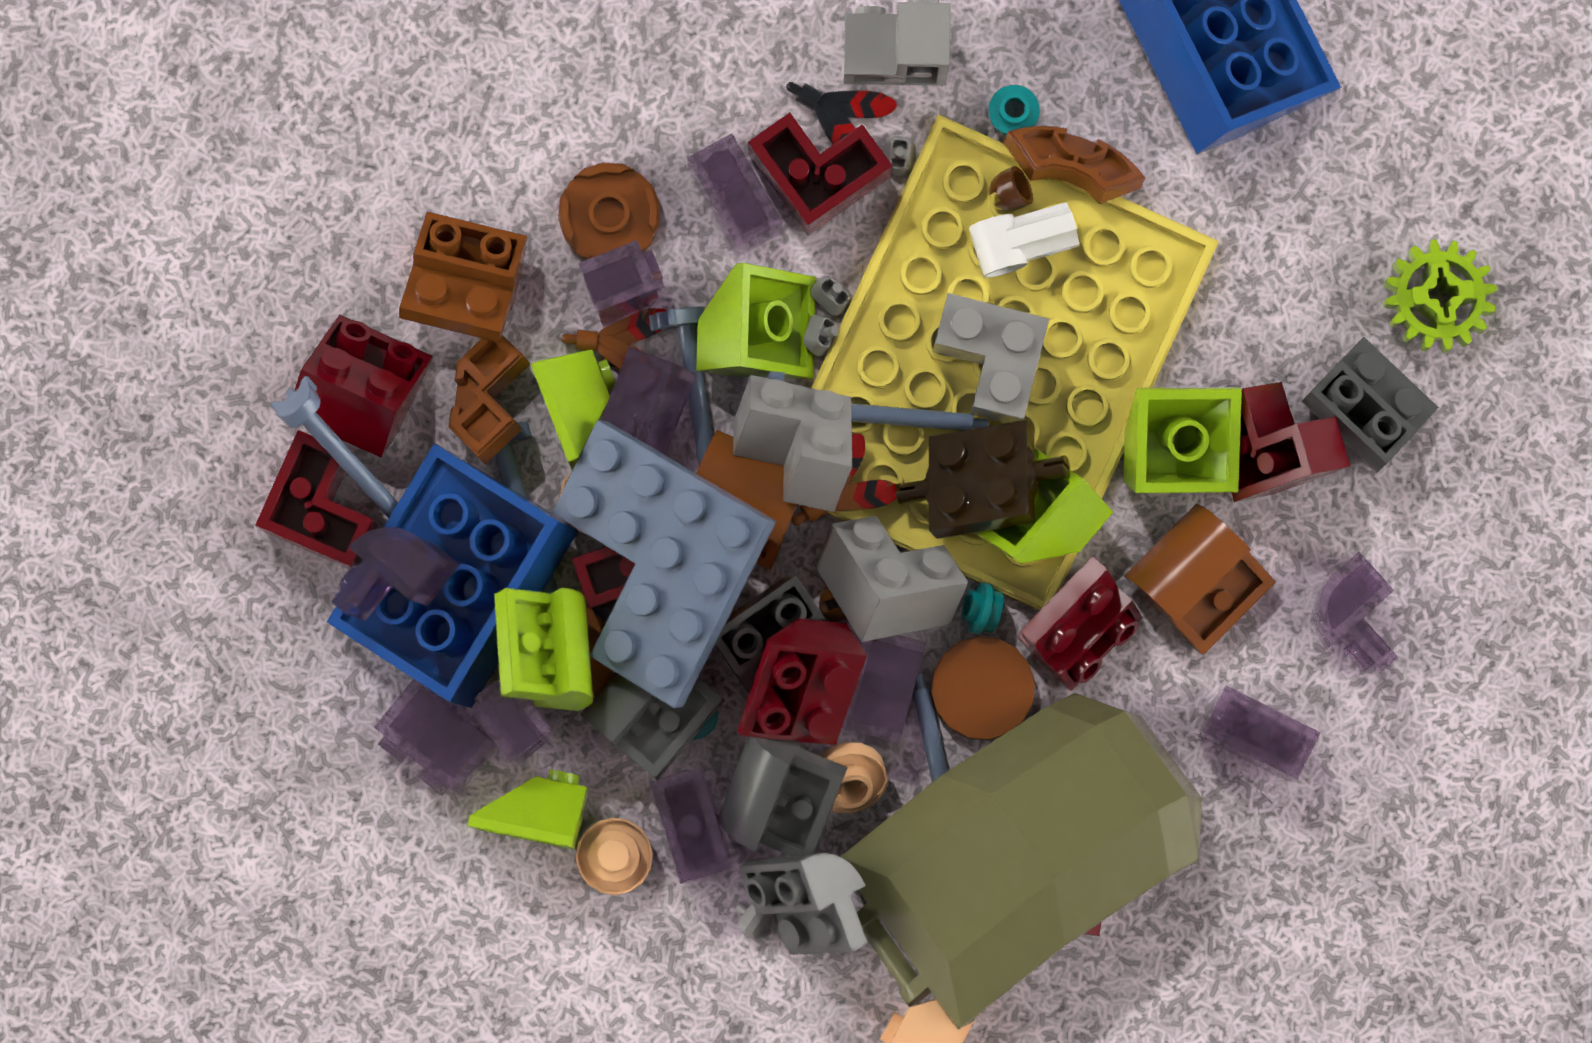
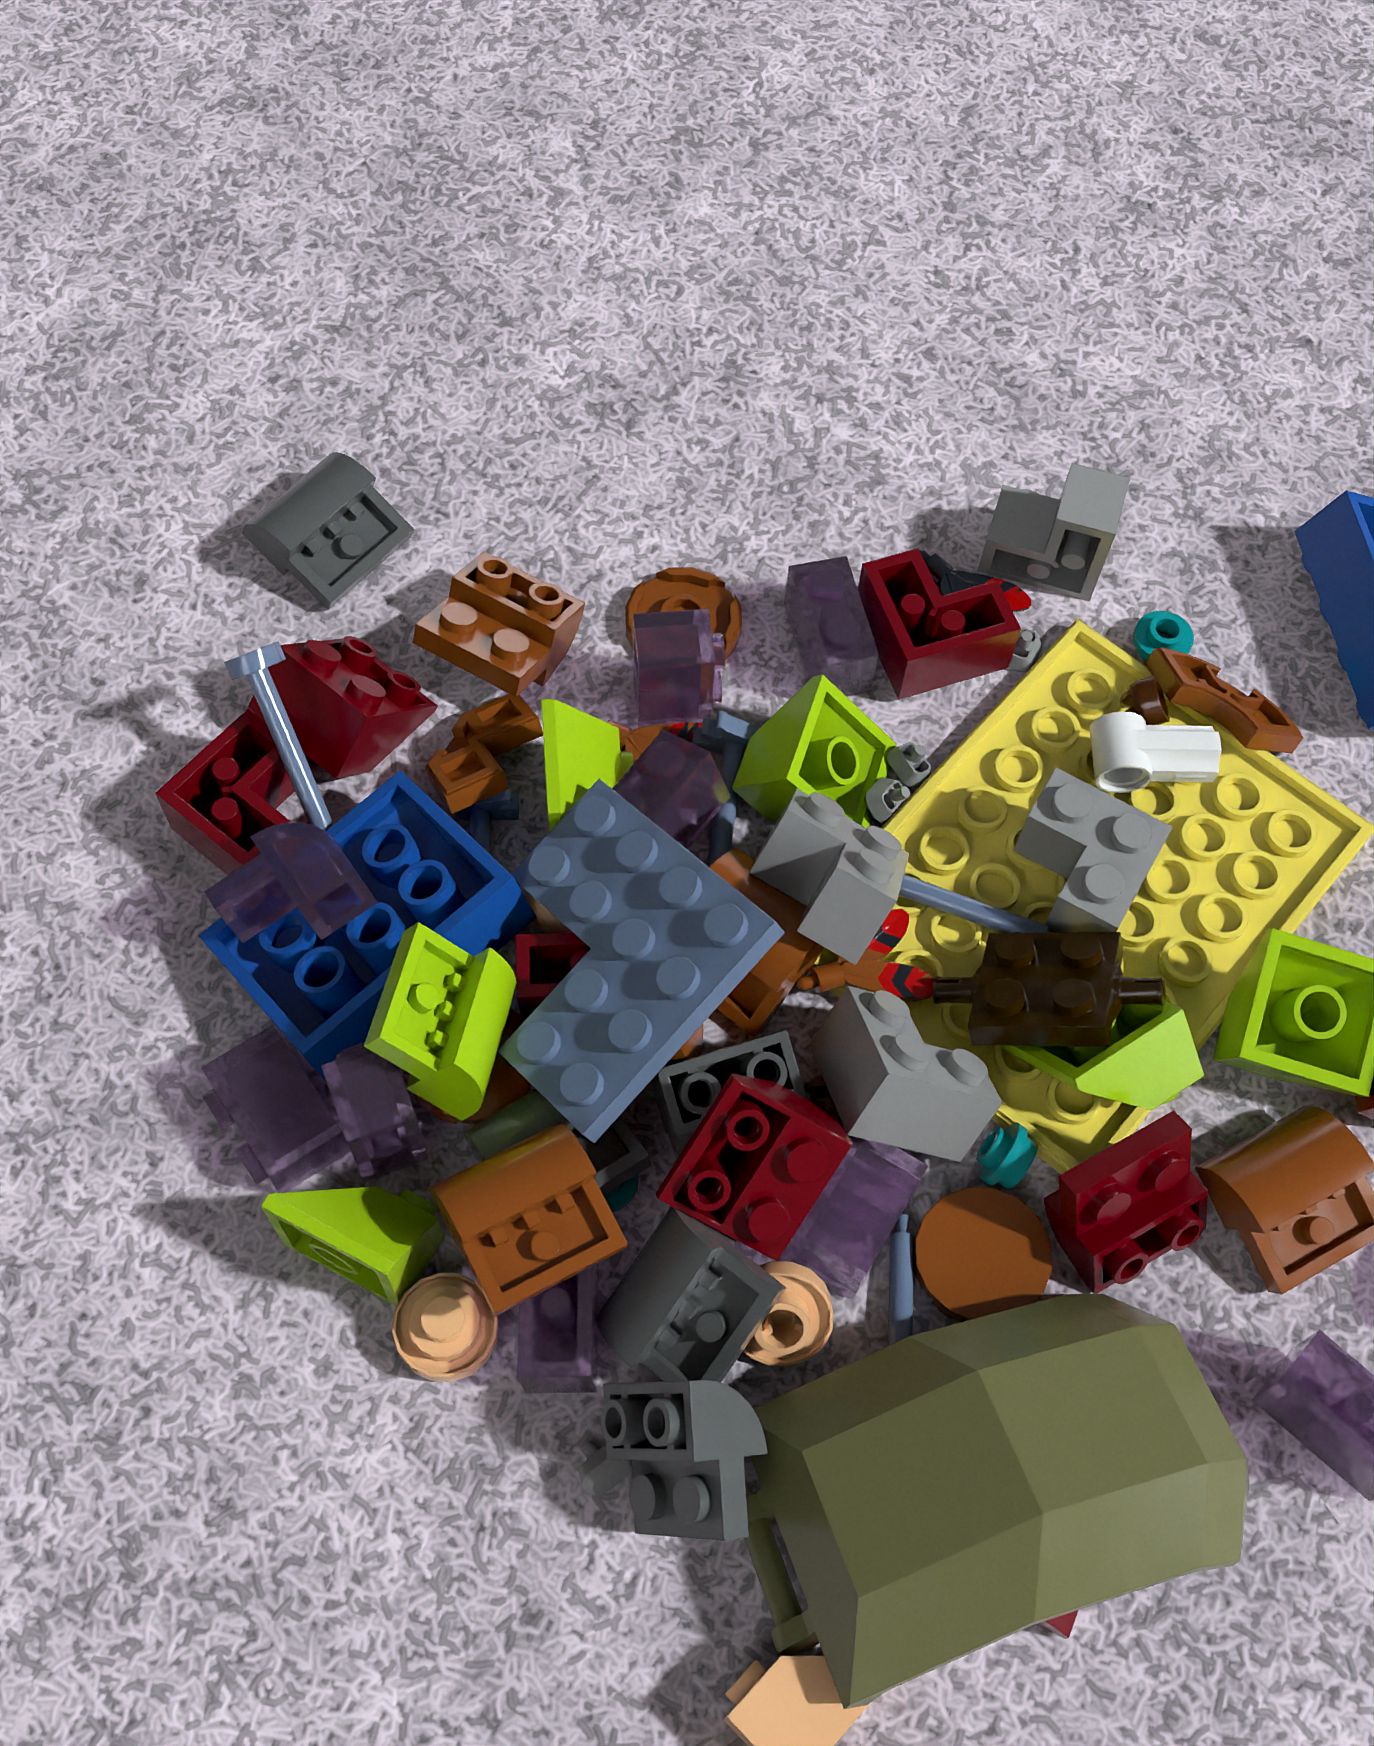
camera: 15 degrees right, 20 degrees down
(286, 223) = (329, 528): none -> dark grey brick
(653, 775) = (529, 1217): none -> dark orange brick

